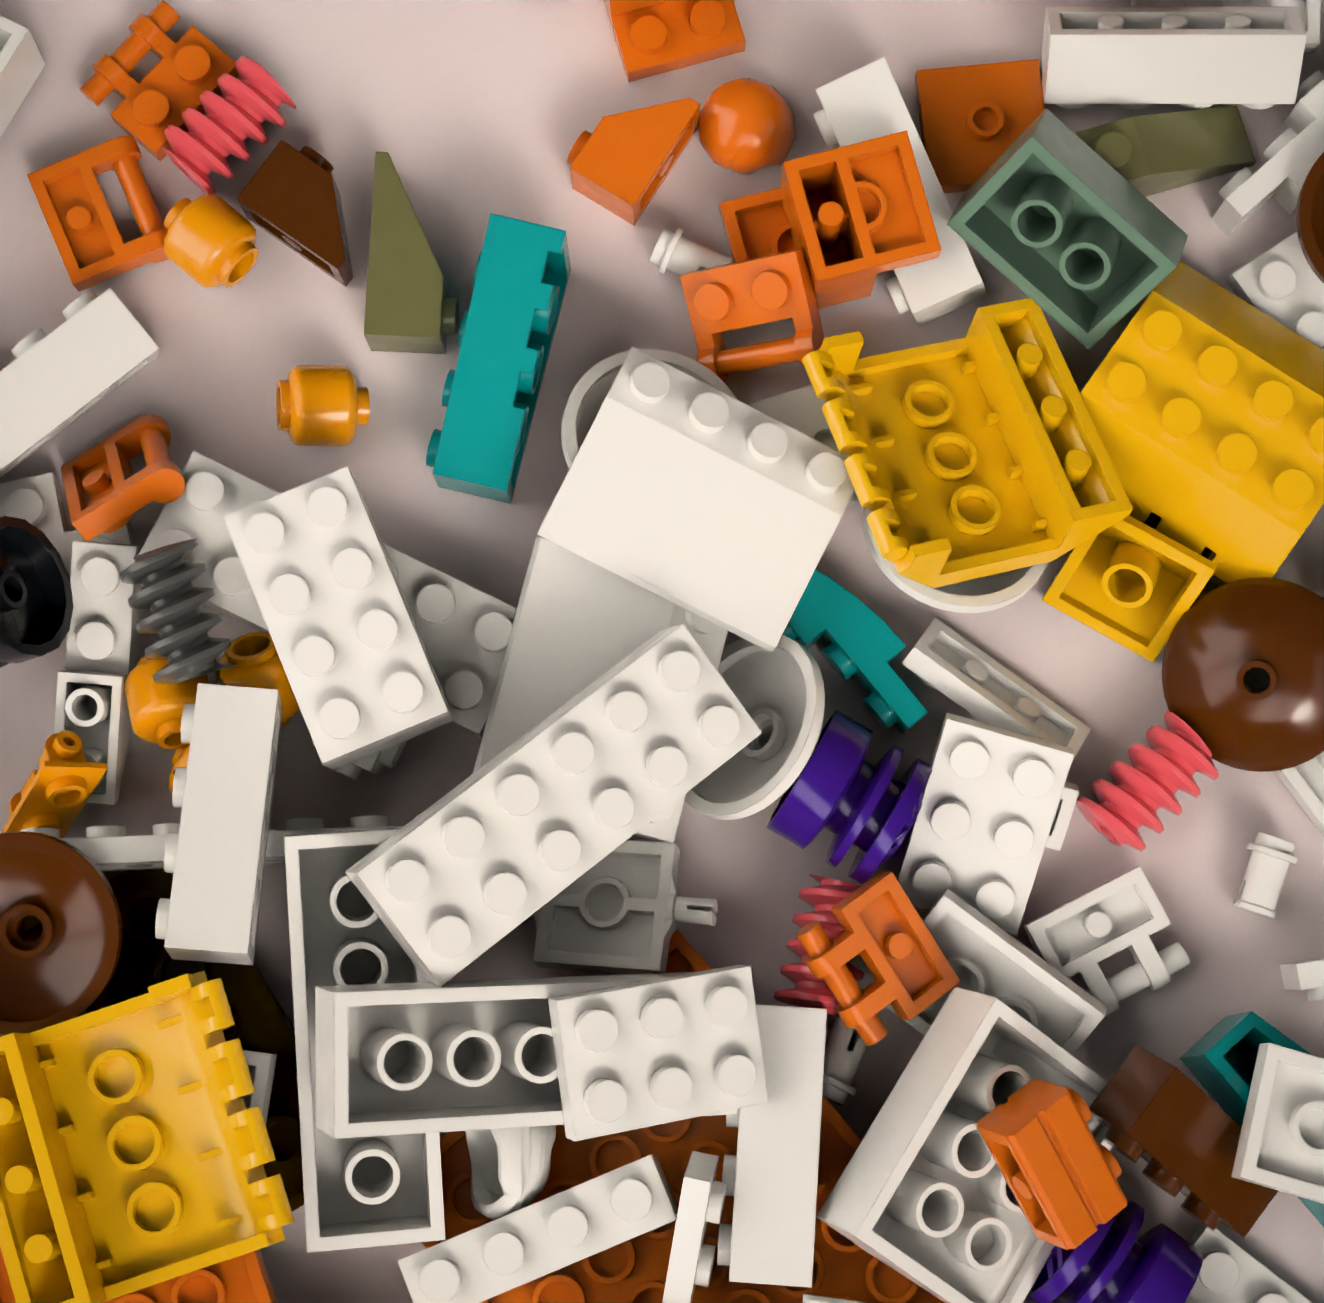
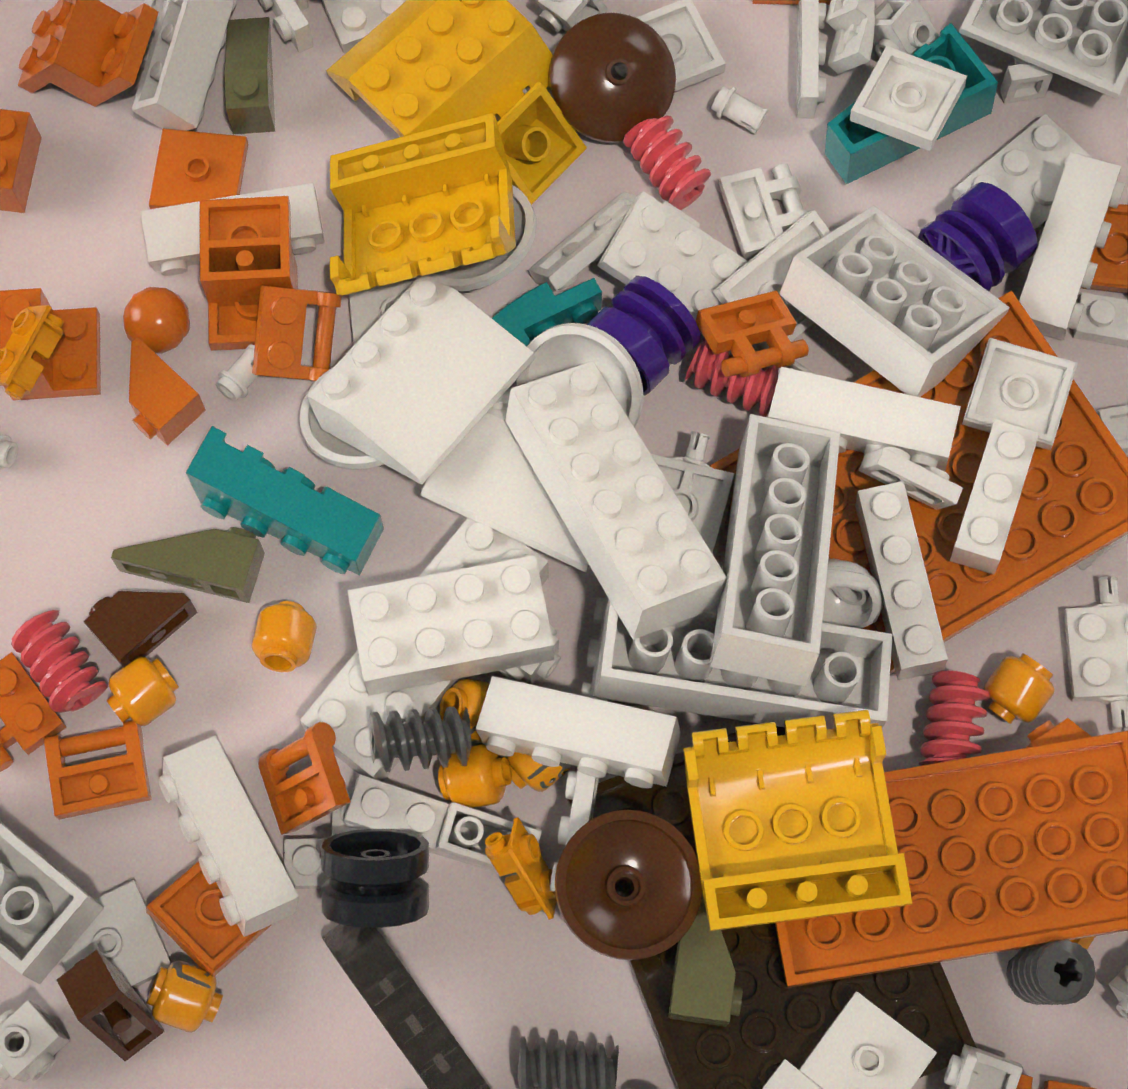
camera: 80 degrees left, 10 degrees down
(657, 1051) = (792, 462): white plate -> none
(1054, 1162) = (905, 246): orange brick -> none
(1068, 229) = (292, 121): sand green brick -> none
(1183, 1139) = (901, 180): reddish brown brick -> none

